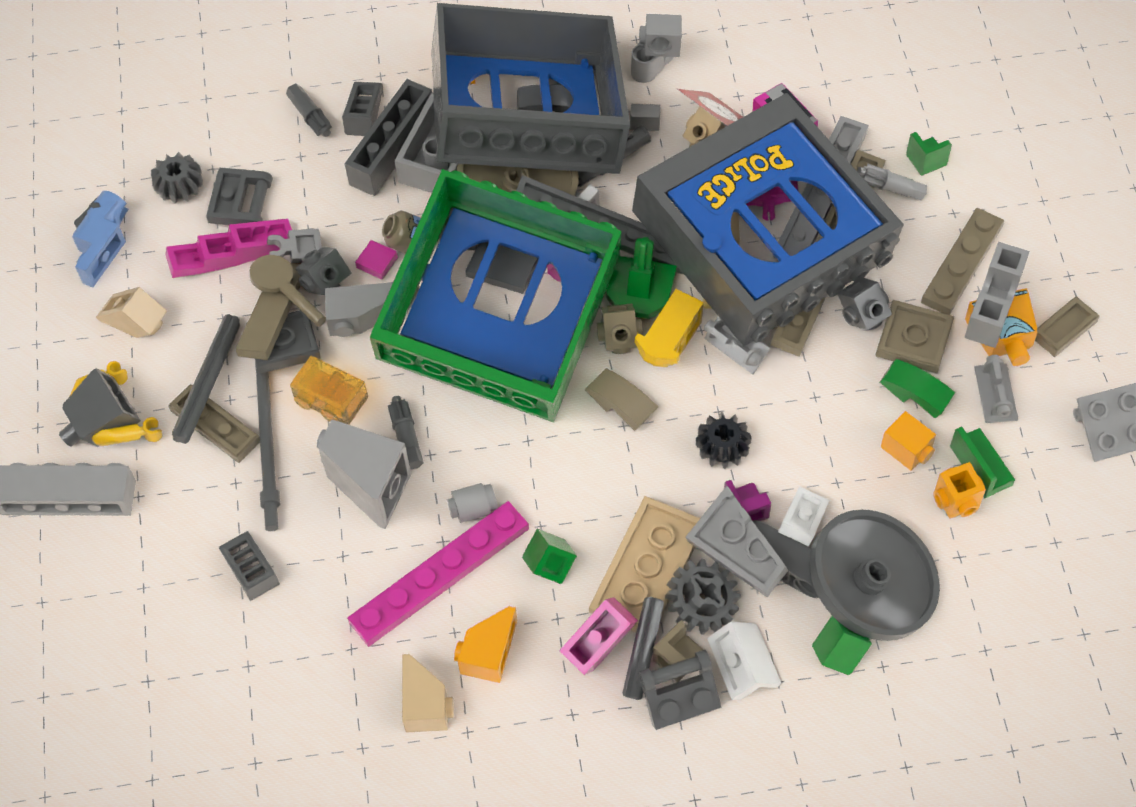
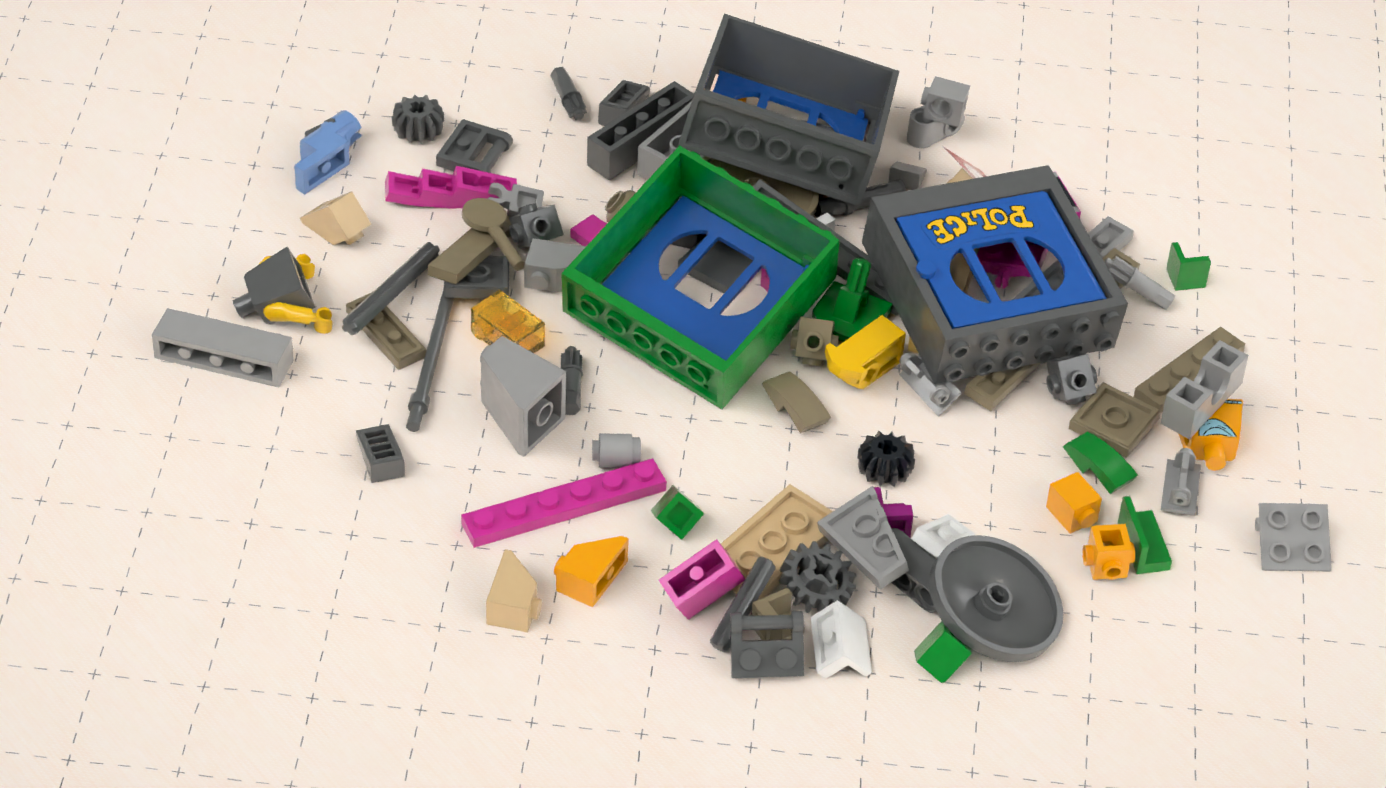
camera: 10 degrees right, 15 degrees down
(1065, 326) = (1275, 449): dark tan tile -> none

